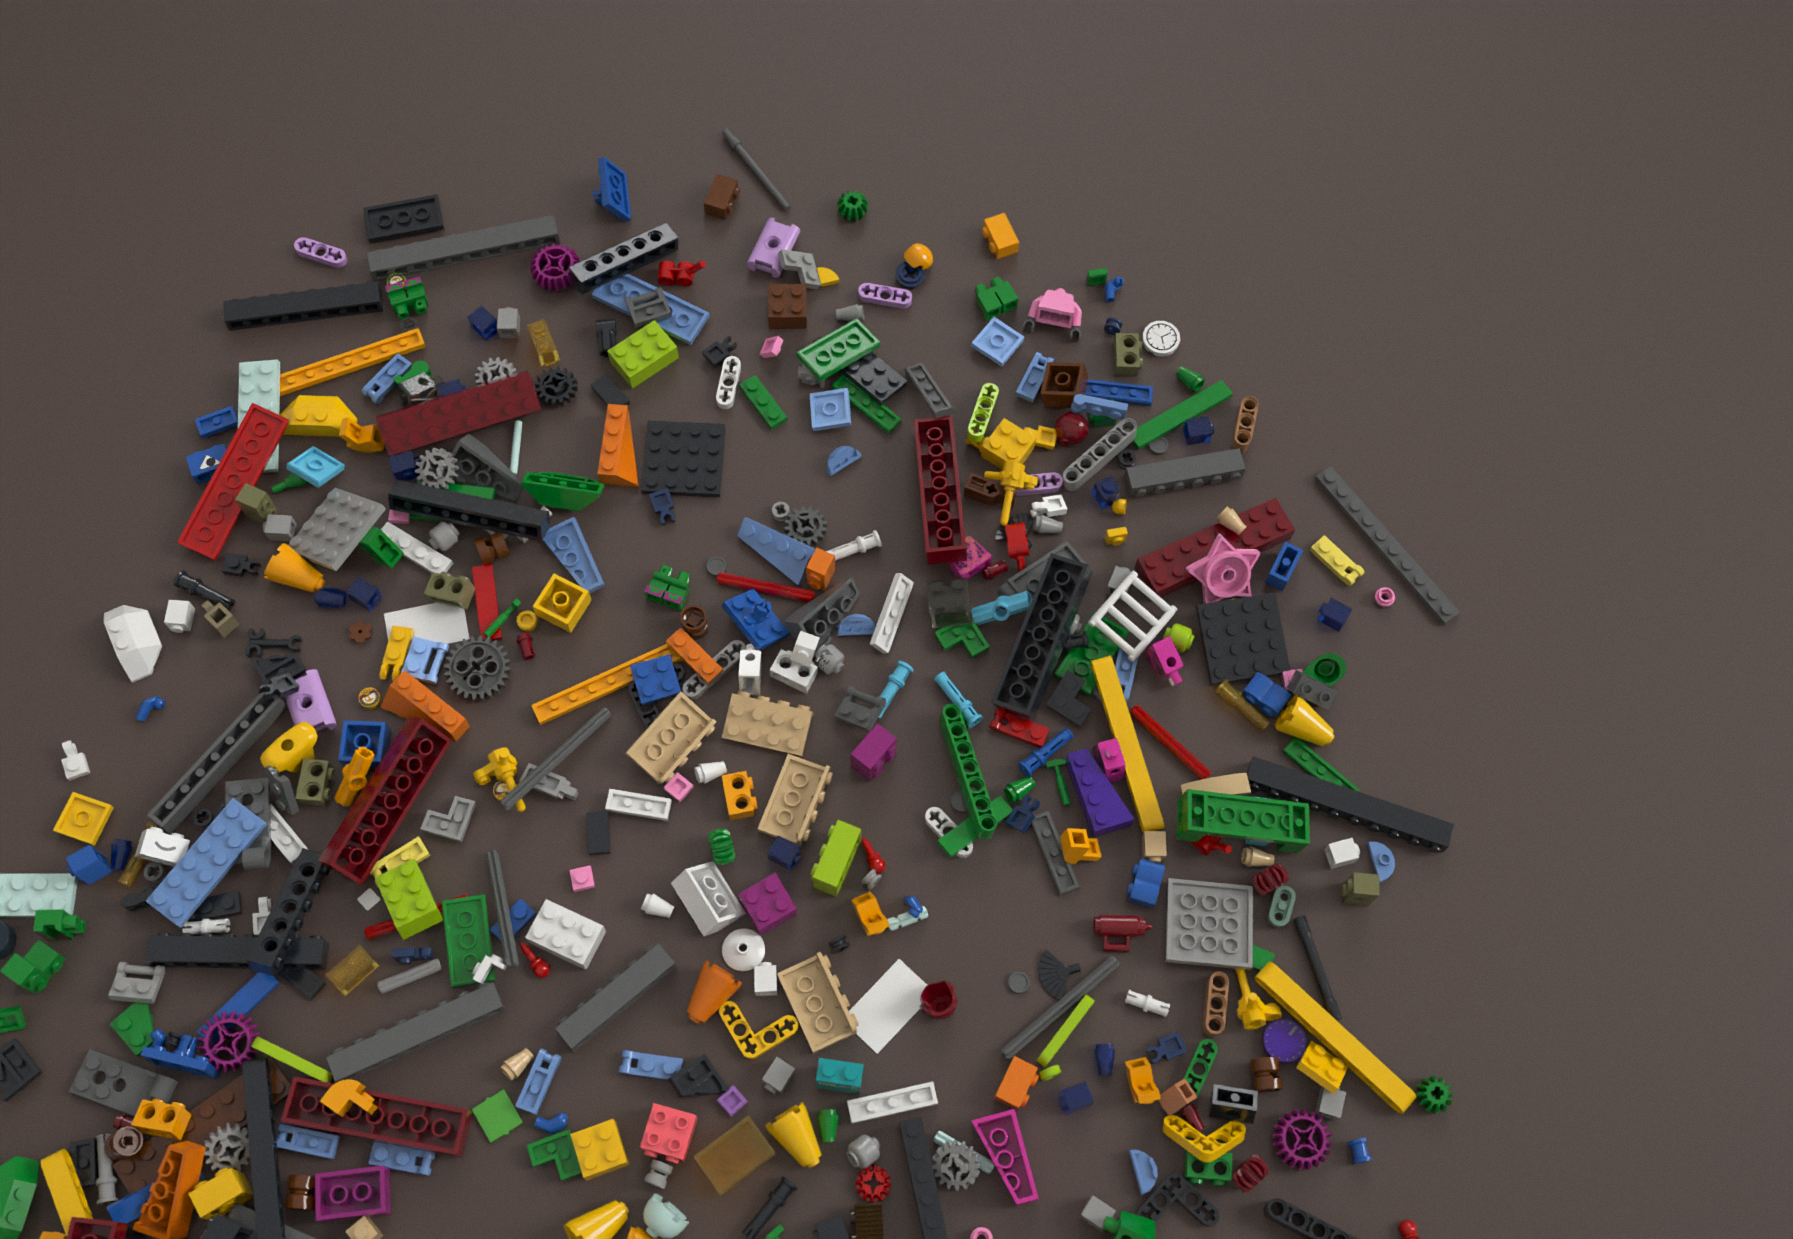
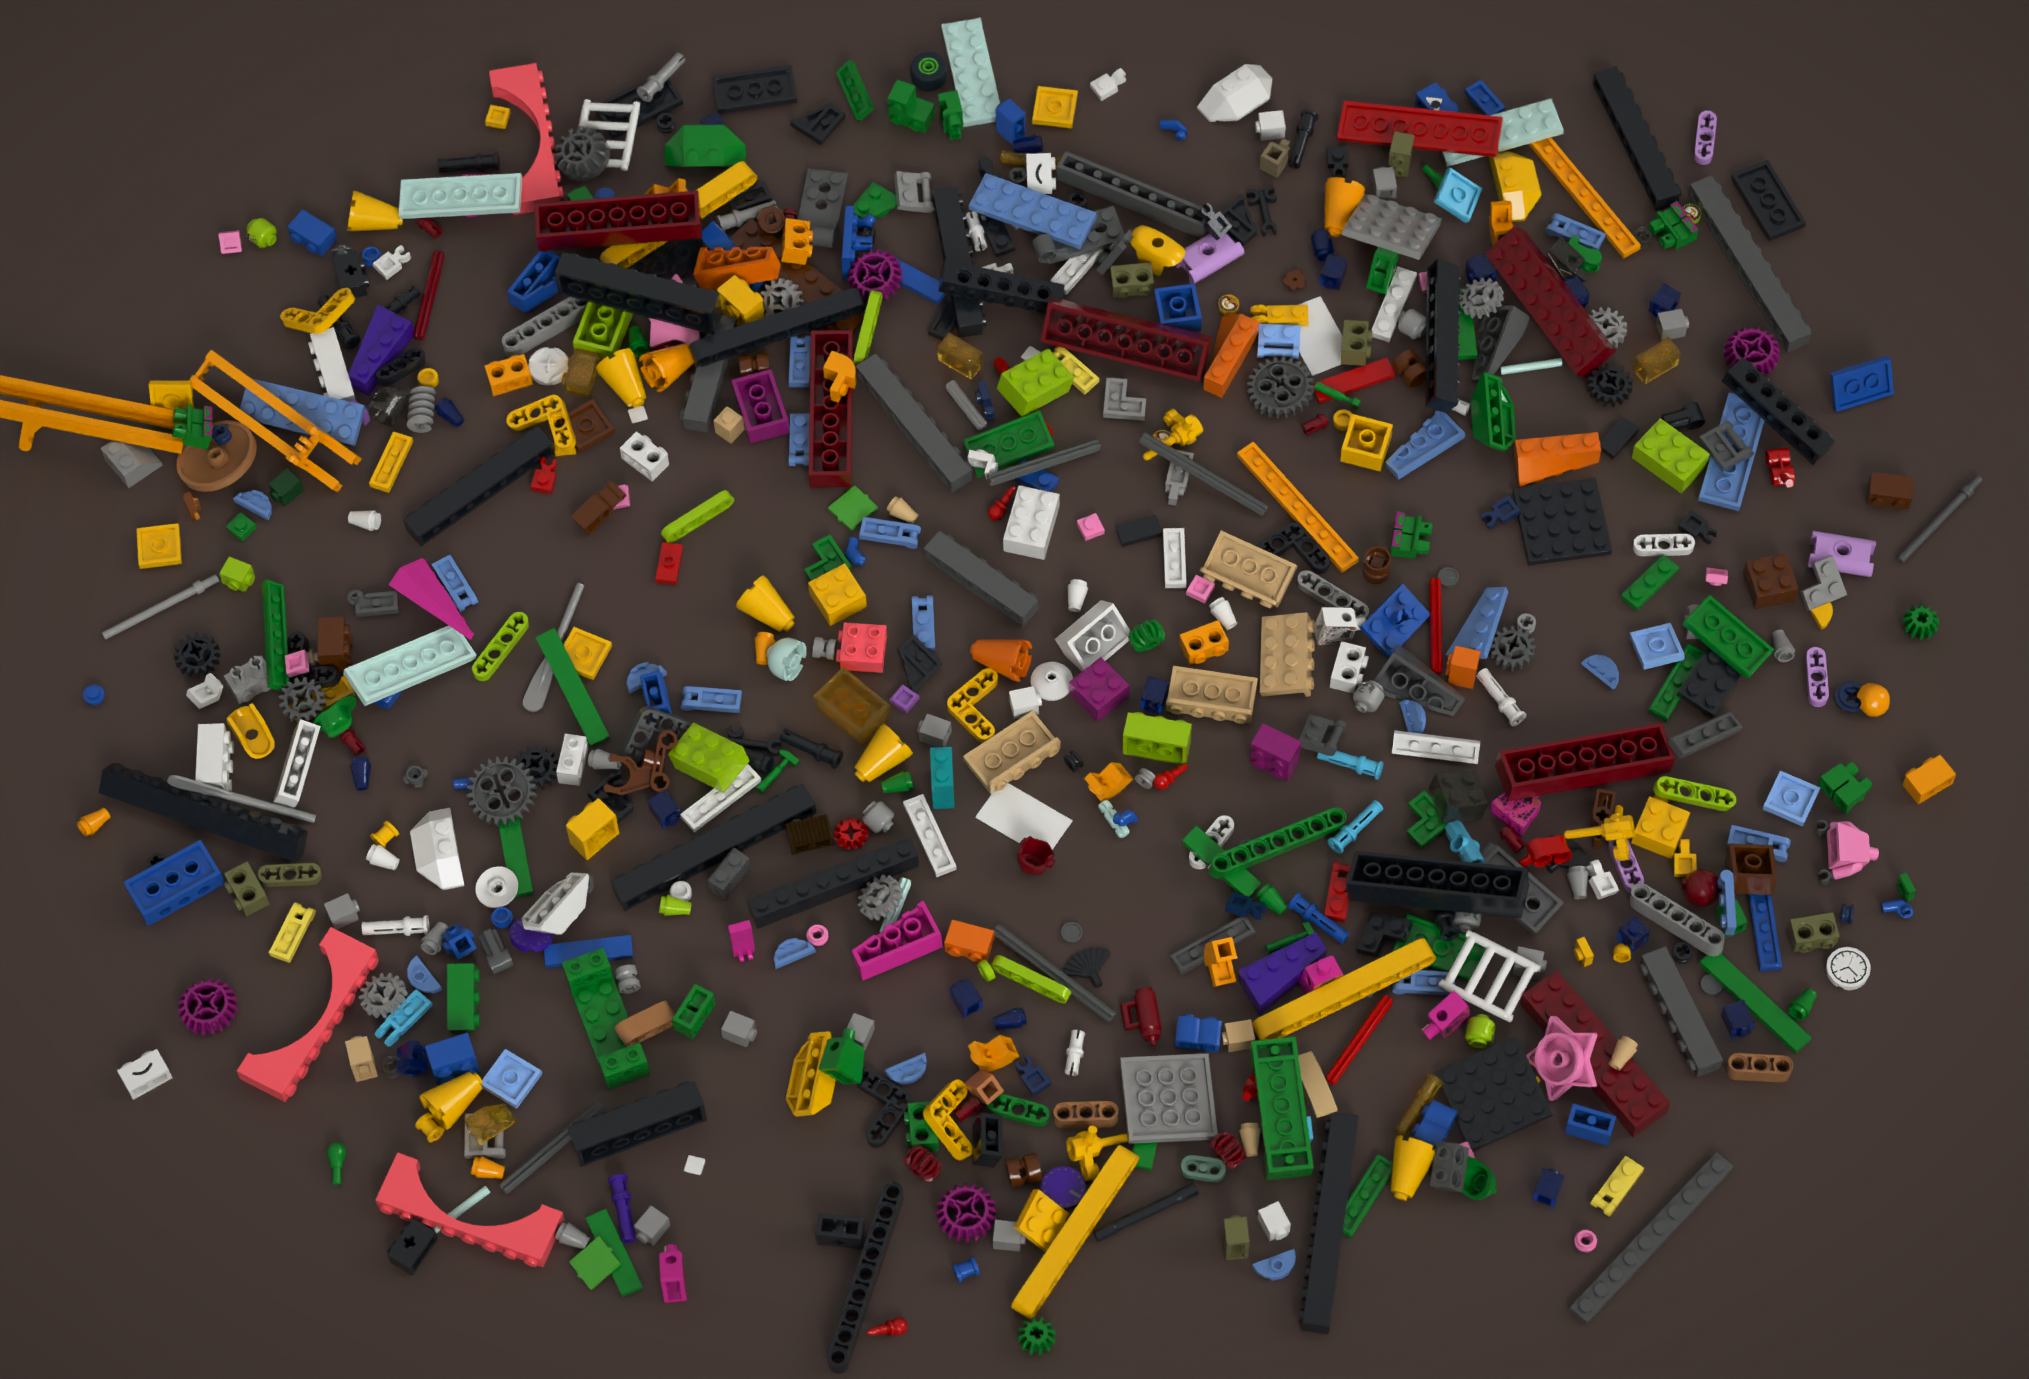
camera: 85 degrees right, 5 degrees down
(354, 776) = (1142, 305): light orange piece -> none
(655, 679) = (1306, 542): blue plate -> none
(694, 656) = (1339, 572): orange plate -> none
(804, 648) = (1370, 666): white brick -> none

